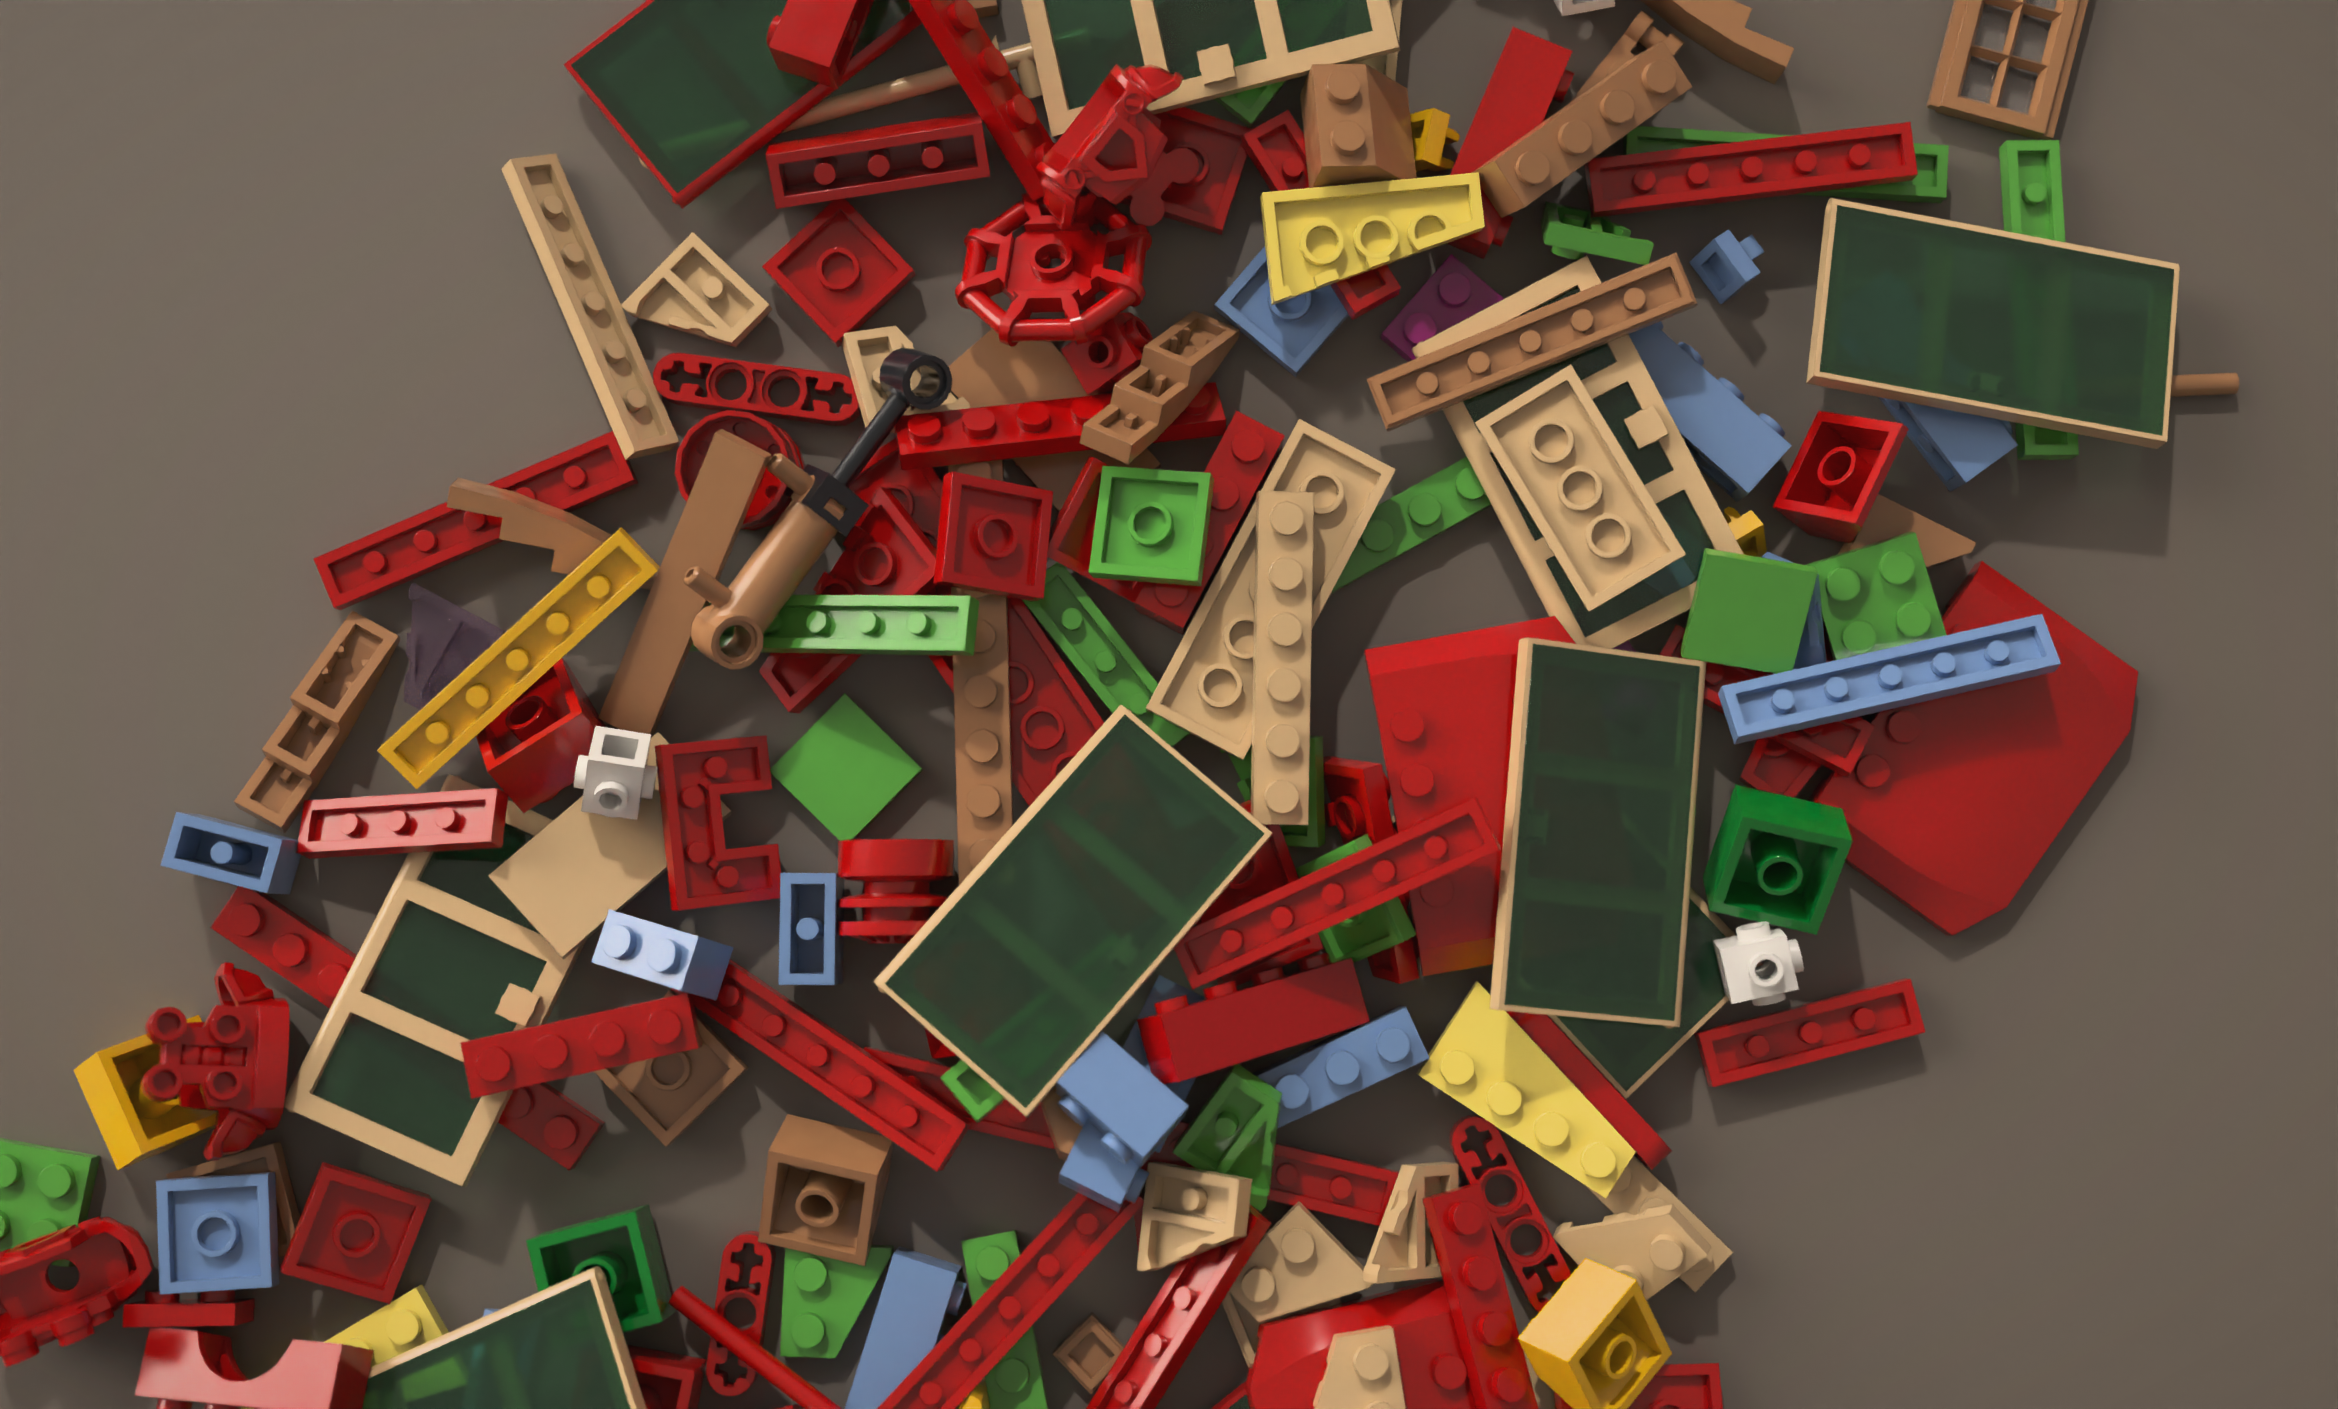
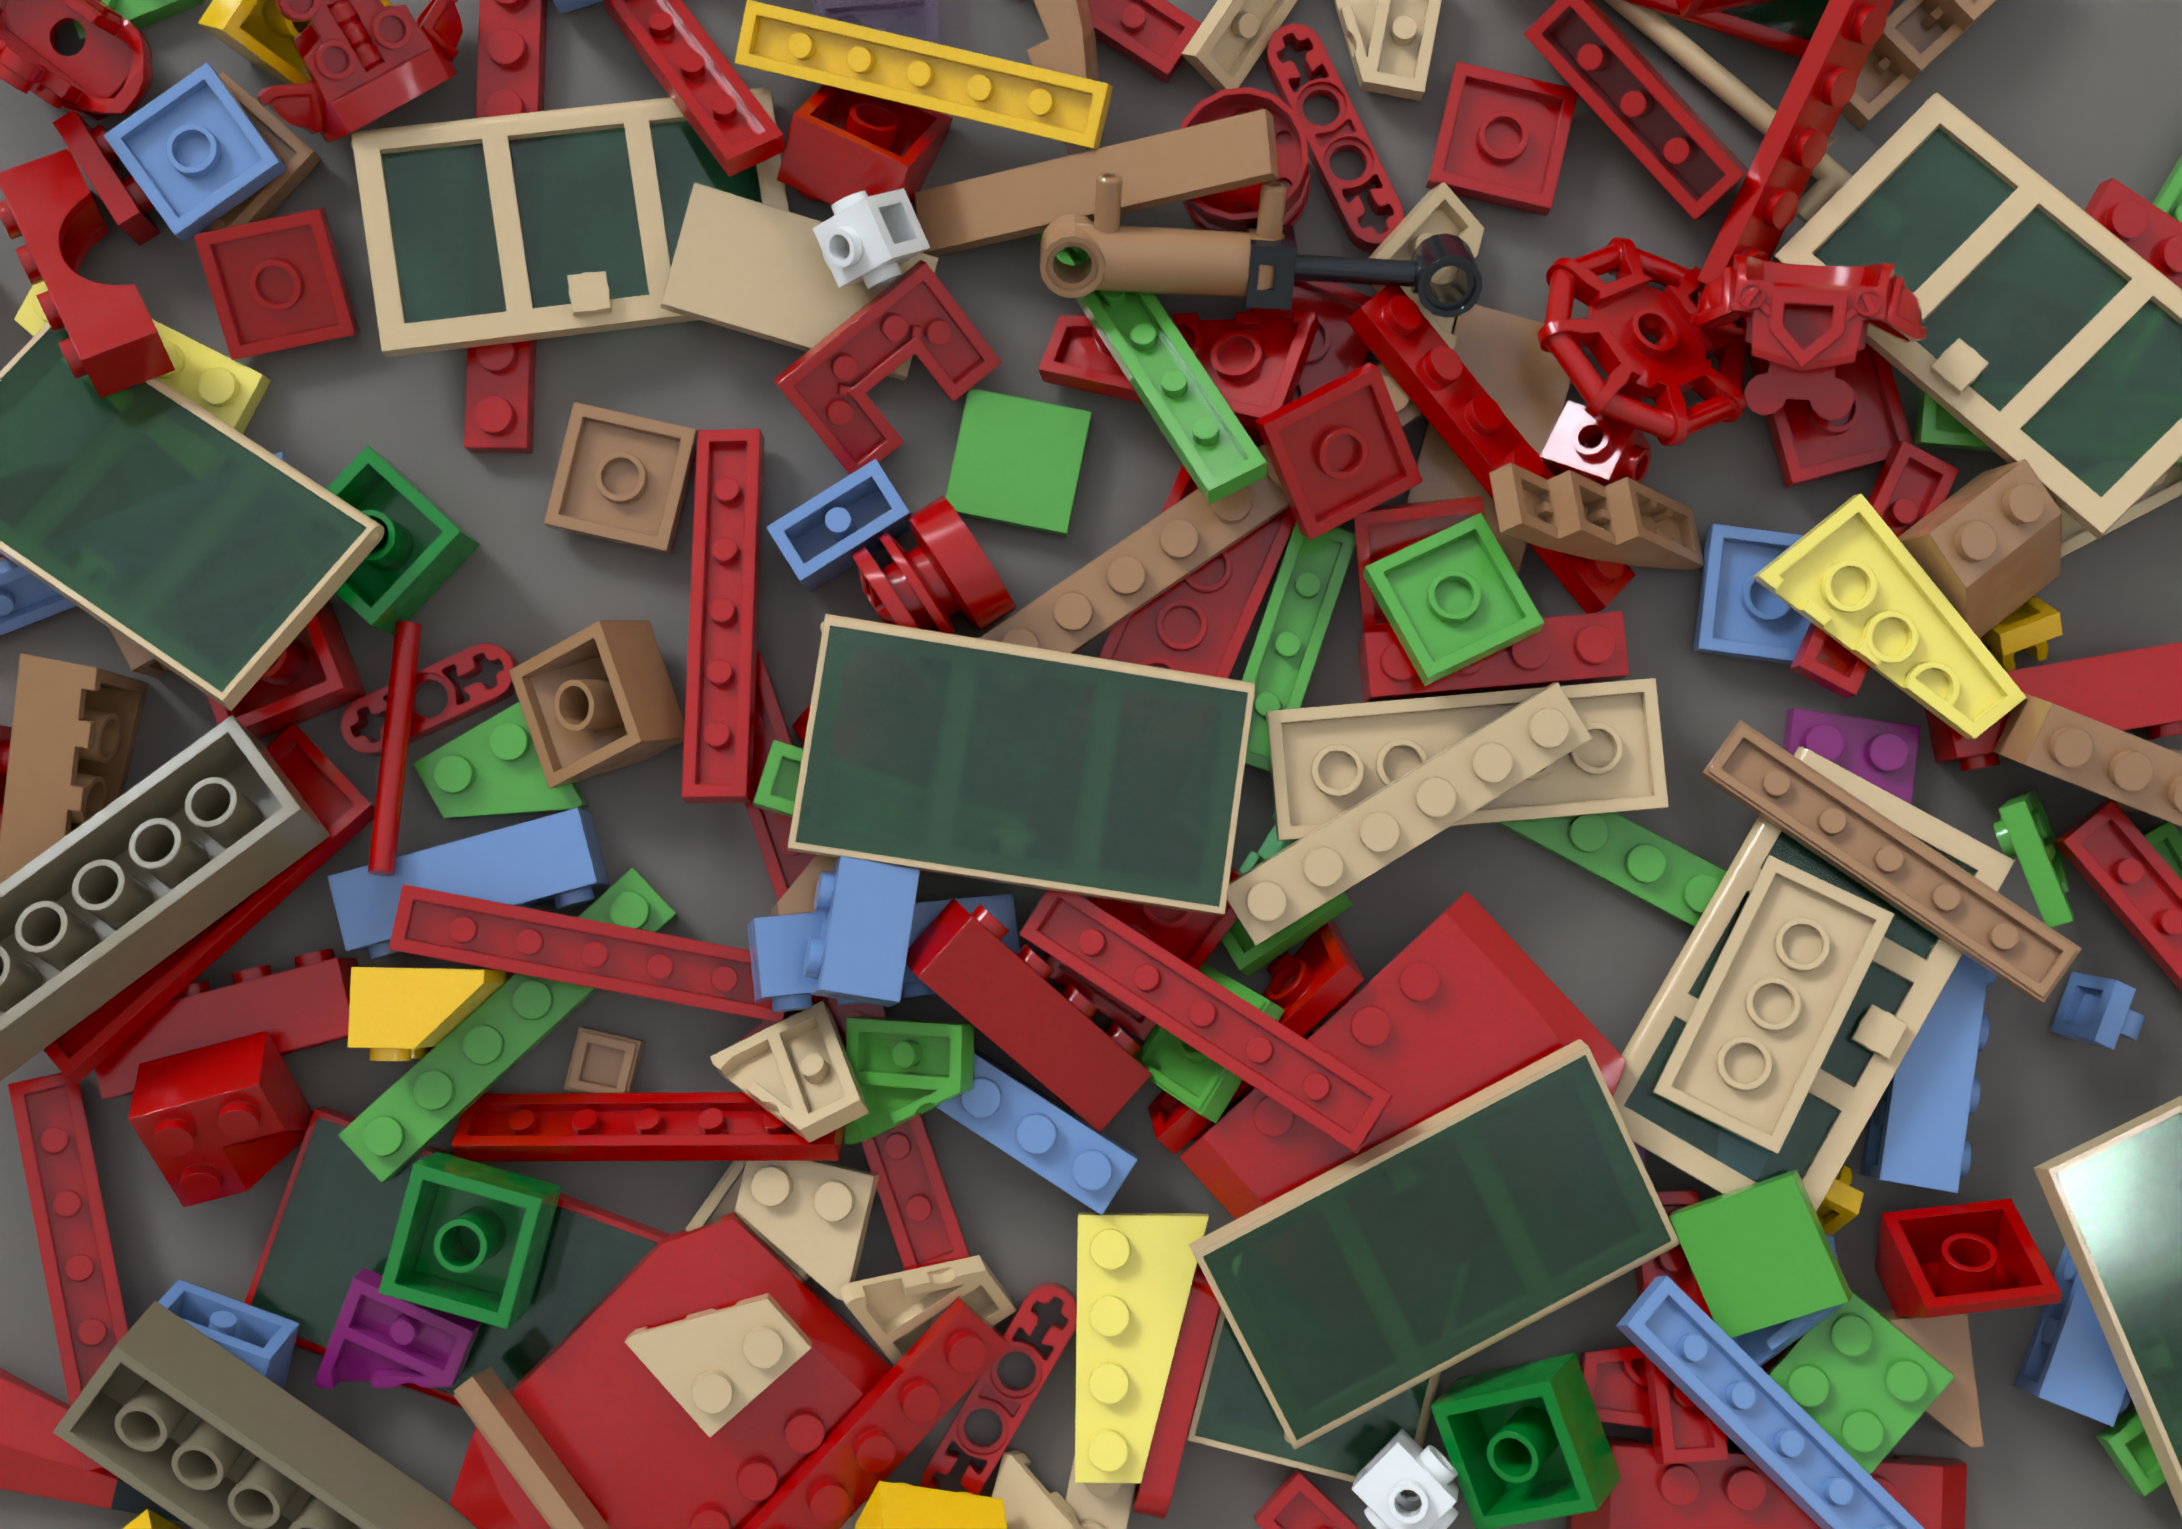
camera: 60 degrees right, 0 degrees up
(581, 1045) = (587, 374): red arch -> none
(662, 955) = (724, 398): brick -> none

